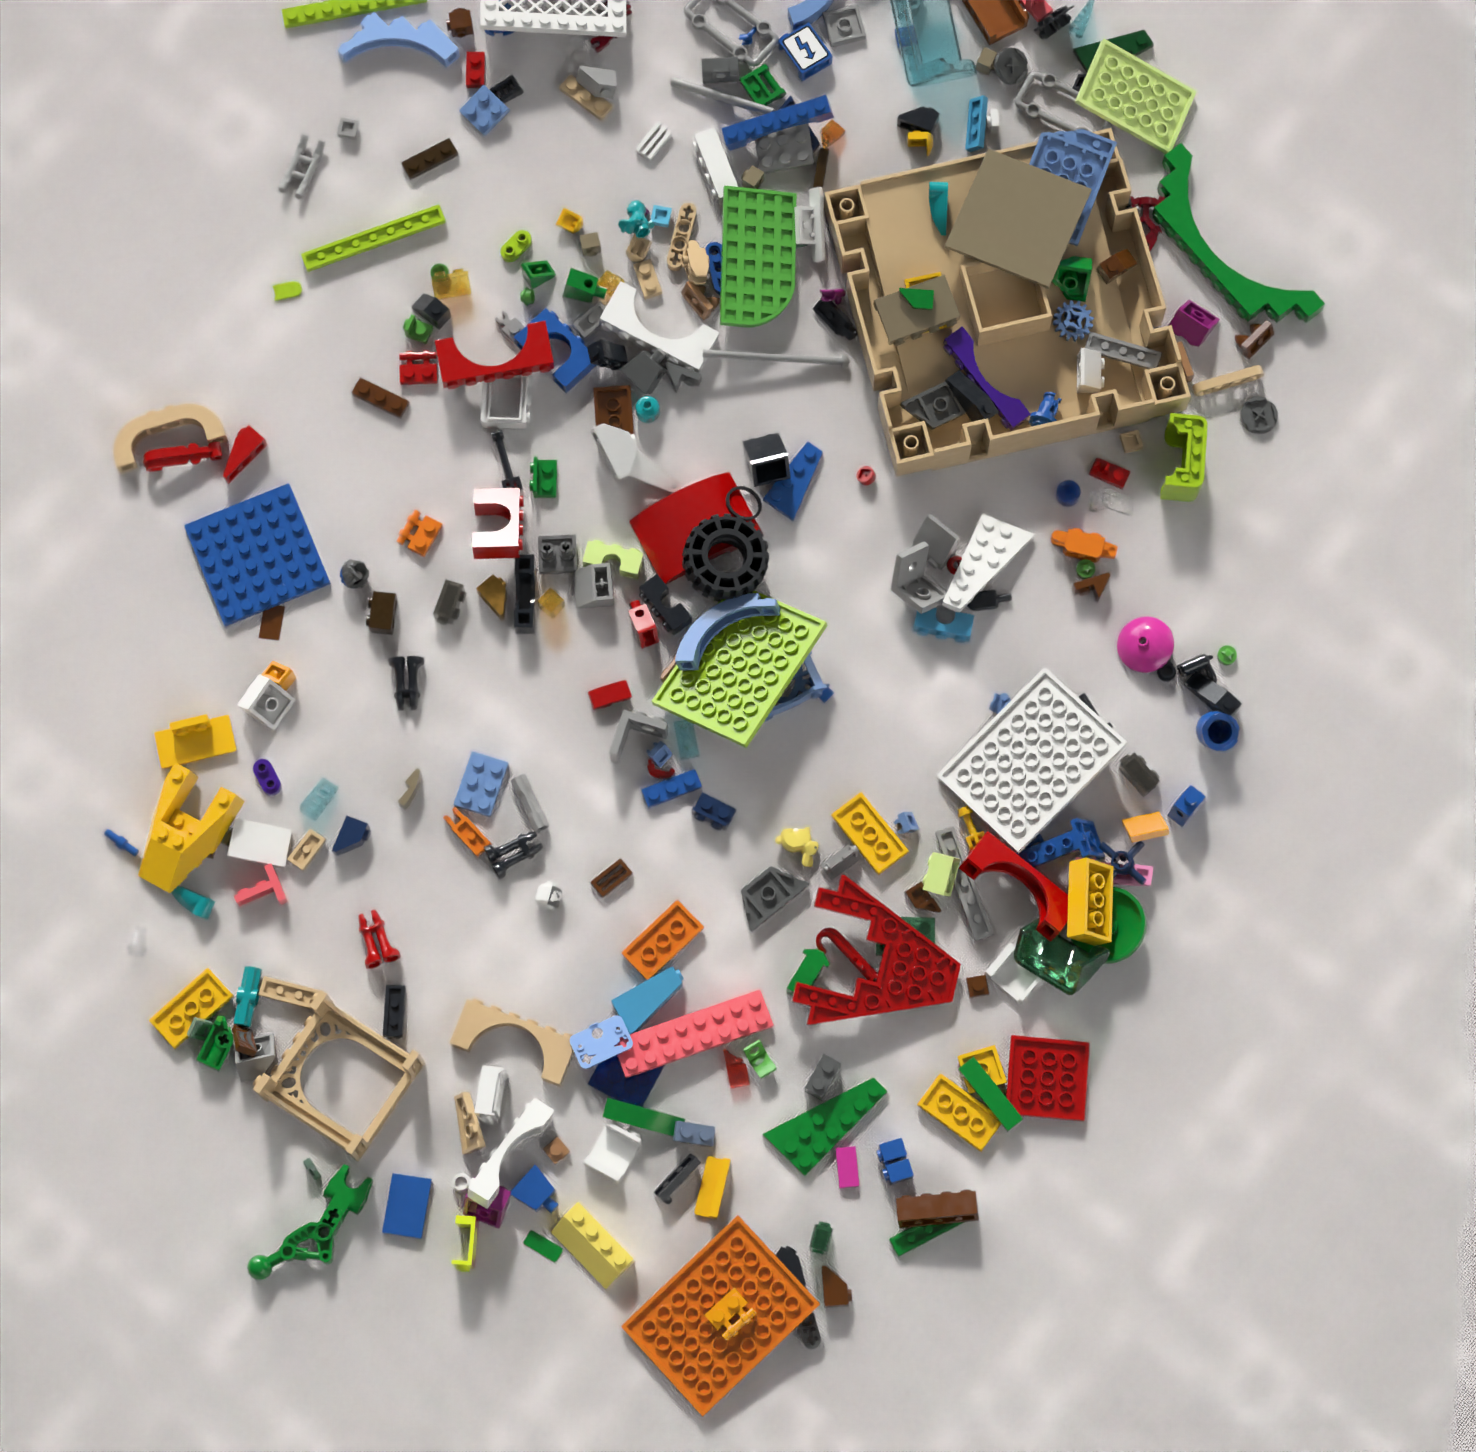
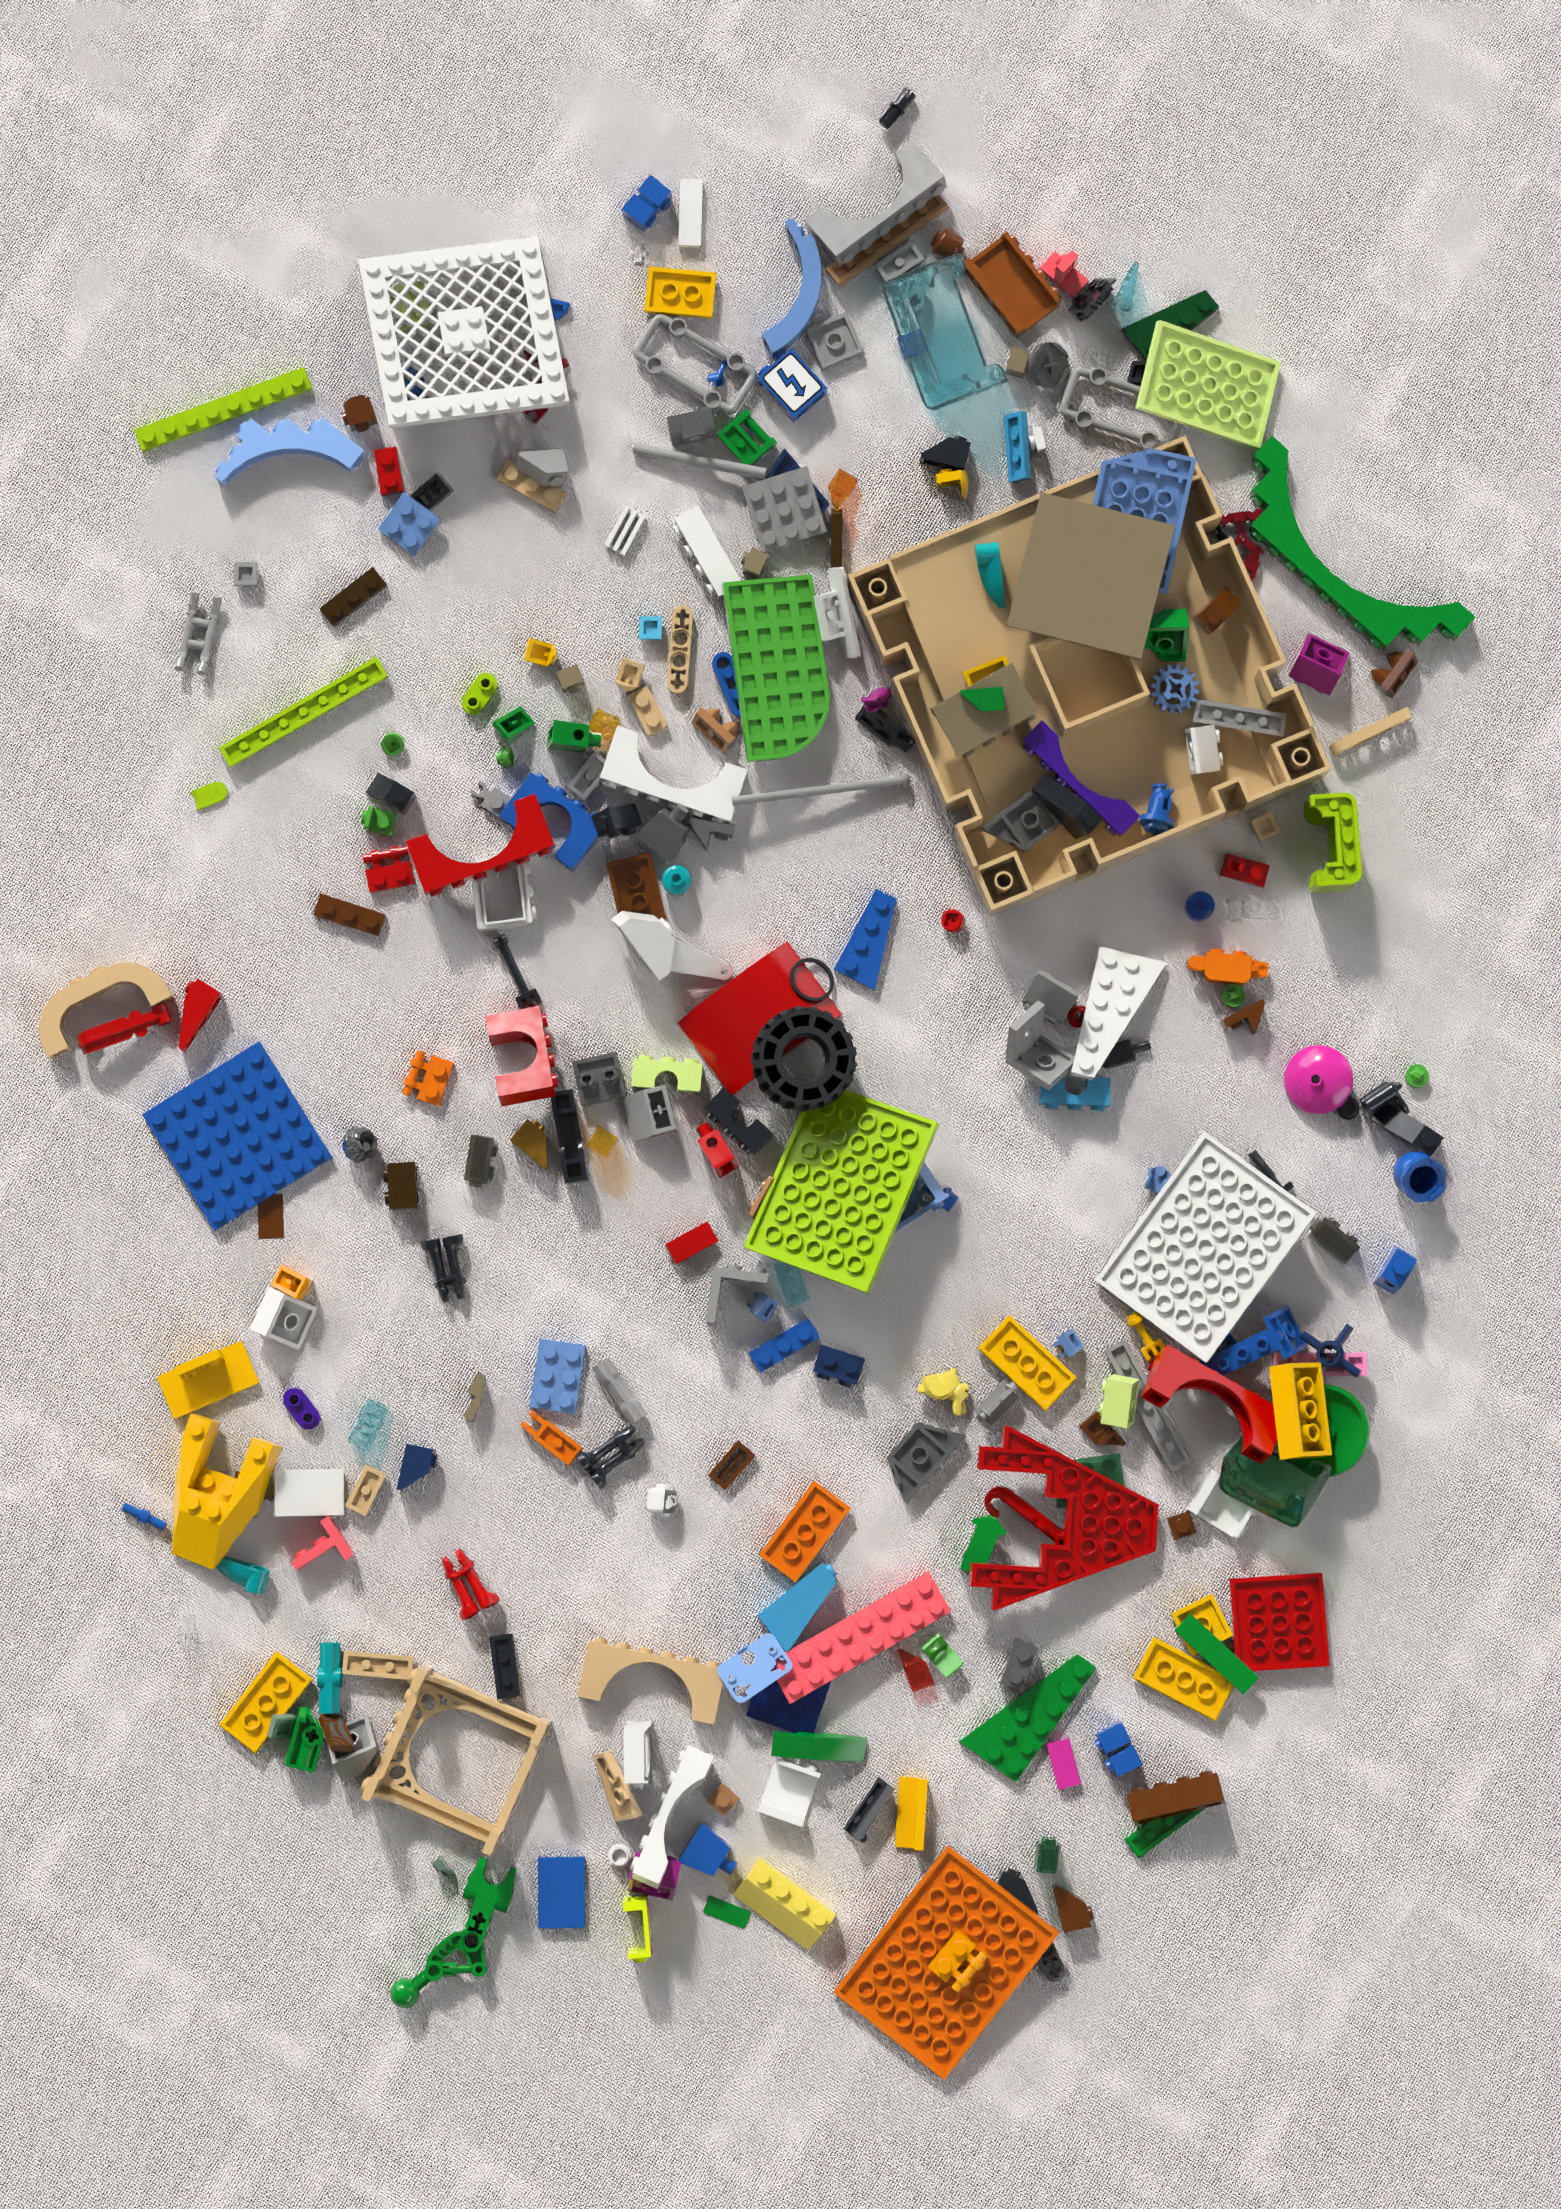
camera: 10 degrees left, 10 degrees up
(451, 285) = (410, 759): clear yellow bracket -> none
(544, 478) = (566, 985): green bracket -> none
(637, 222) = (624, 644): teal animal -> none
(659, 773) = (765, 1329): red piece -> none
(694, 1133) = (879, 1754): sand blue plate -> none
(696, 263) = (704, 685): tan hinge -> none
(715, 620) = (802, 1136): medium blue arch -> none
(766, 459) = (831, 921): black slope -> none
(806, 112) = (774, 487): blue arch -> none
(1145, 827) = (1350, 1305): light orange tile -> none
(1188, 372) = (1319, 725): medium nougat plate -> none
(1259, 415) = (1413, 768): dark grey tile -> none

